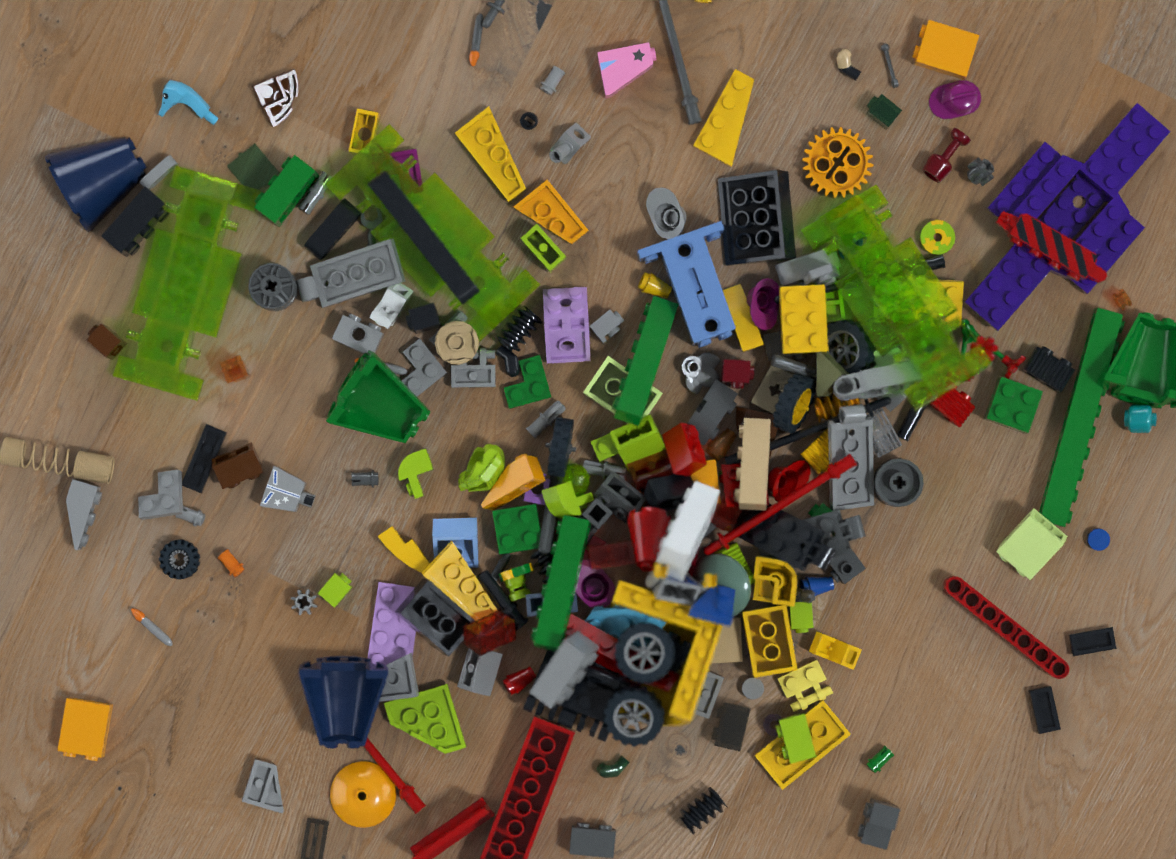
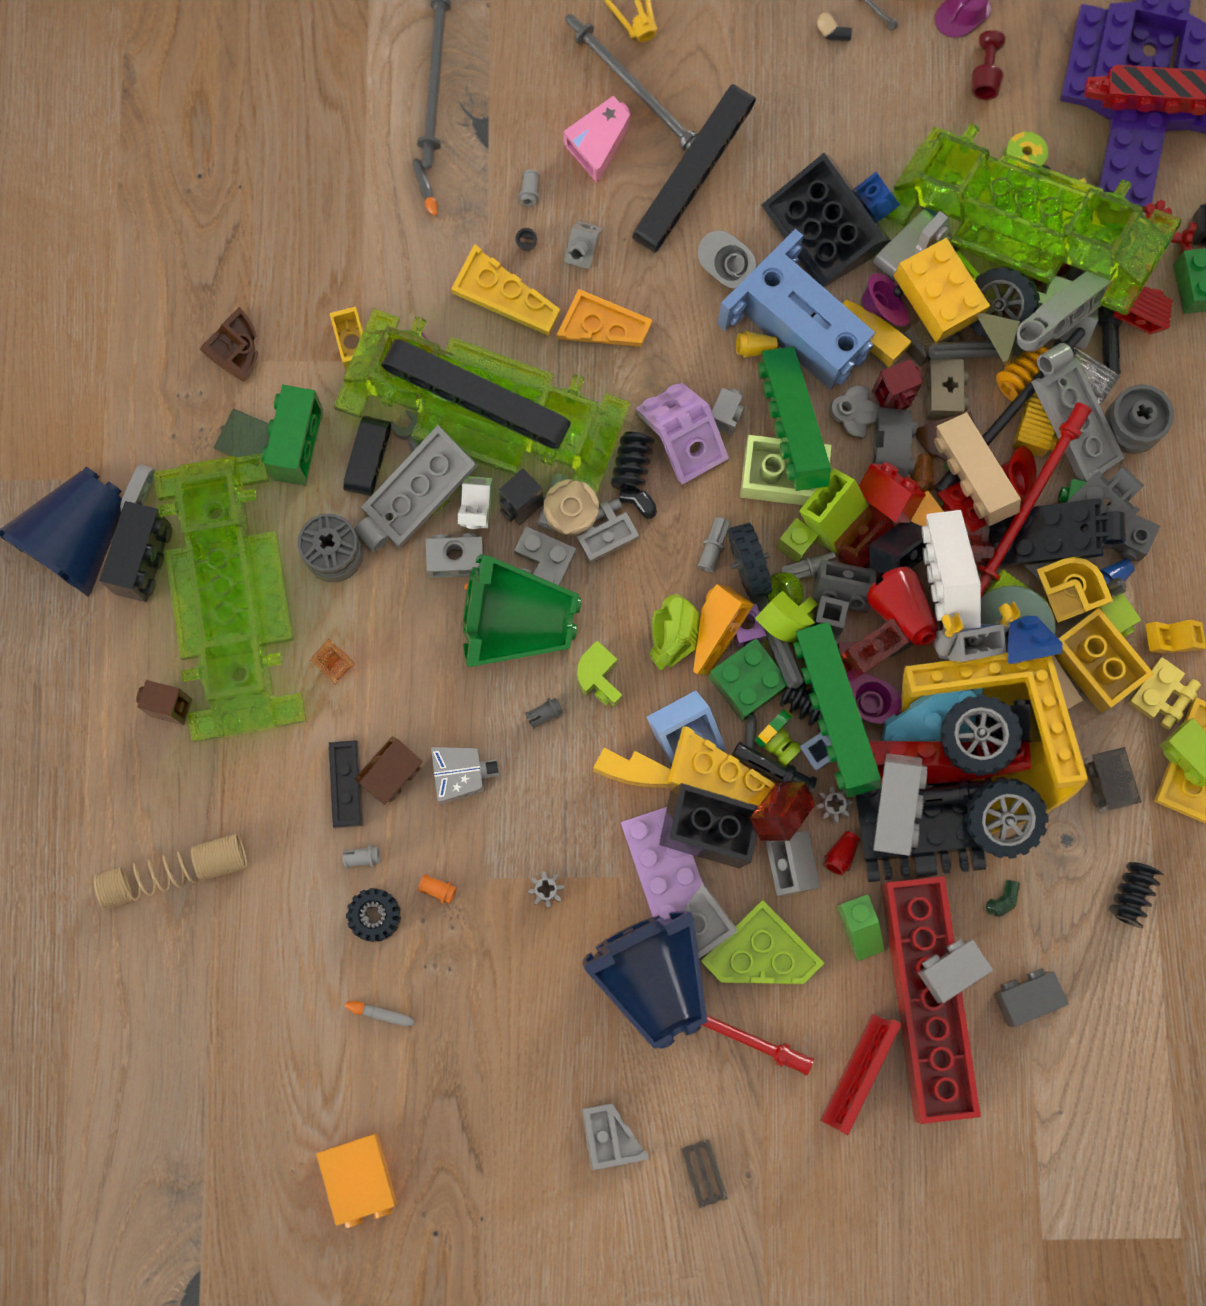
camera: 30 degrees left, 10 degrees down
(80, 506) = (224, 910): light grey slope -> none
(167, 501) = (325, 855): light grey plate -> none
(178, 92) = (118, 392): medium azure animal -> none
(315, 193) = (328, 428): light grey pin -> none
(336, 589) = (575, 855): lime brick -> none
(366, 778) = (710, 1081): light orange dish -> none
(504, 736) = (861, 927): none -> bright green slope
(524, 647) = (829, 811): none -> light grey gear
(534, 386) = (681, 517): green plate -> none
(543, 248) = (613, 360): lime brick -> none
(544, 797) = (954, 970): none -> light grey brick
(678, 130) = (694, 168): none -> black beam
(725, 122) = (742, 160): yellow wing -> none
(752, 688) = (1108, 726): light grey tile -> none
(766, 723) = (1148, 756): plate -> none
(794, 403) = (981, 385): black wheel -> none
(802, 219) = (877, 196): none -> blue brick
(821, 151) = (904, 130): light orange gear -> none
(883, 111) = (897, 53): clear green brick -> none
(980, 171) = (1033, 63): dark grey gear -> none

